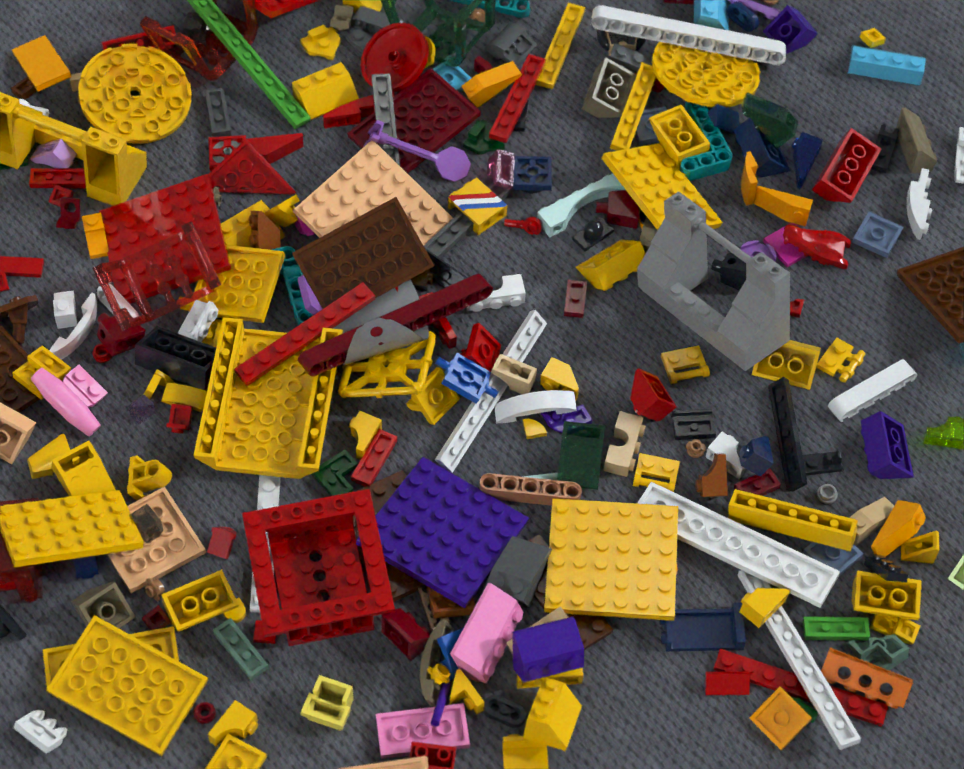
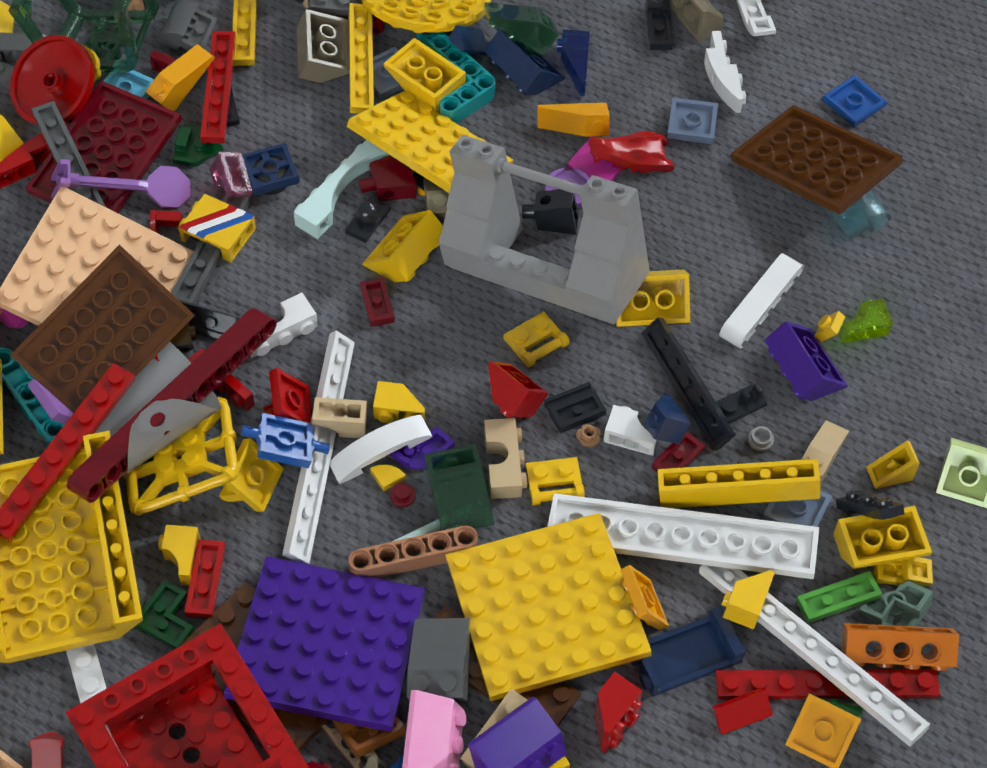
camera: 20 degrees left, 0 degrees up
(440, 187) = (164, 218): none -> red tile
(530, 225) = (290, 231): red plate -> none
(539, 446) = (402, 495): none -> dark red plate
(633, 649) = (615, 710): none -> red slope
(686, 578) = (644, 598): none -> light orange plate
(715, 479) = (628, 465): dark orange arch -> none
(748, 179) = (524, 101): light orange slope -> none
(836, 355) = (703, 275): yellow plate -> none
(846, 168) = (628, 56): red slope -> none
(899, 527) = (860, 450): light orange slope -> none
(917, 426) = (829, 326): none -> yellow plate

